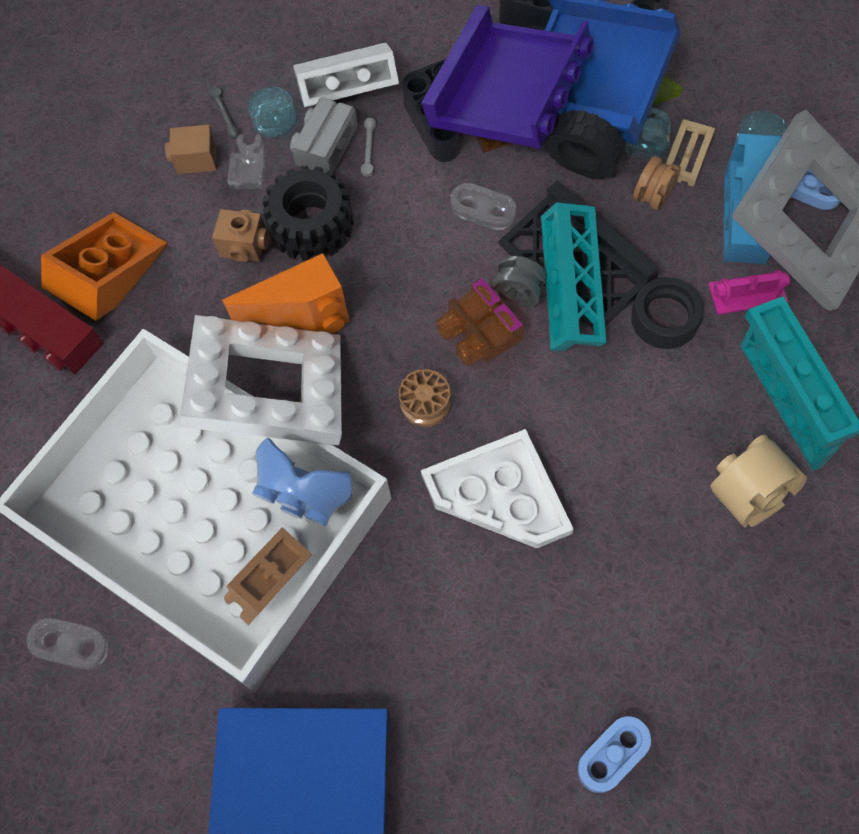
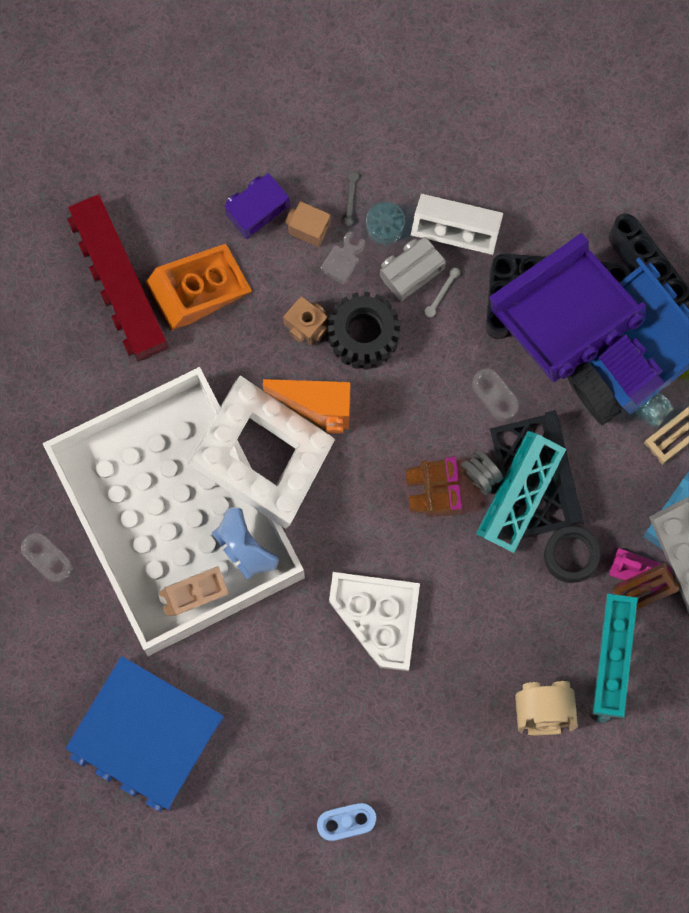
camera: 25 degrees right, 10 degrees up
(127, 159) = (256, 205): none -> dark purple brick
(424, 399) = (366, 521): medium nougat wheel -> none
(613, 88) = (631, 369): none -> dark purple brick
(656, 183) = (630, 450): medium nougat wheel -> none
(763, 285) = (667, 577): none -> reddish brown tile

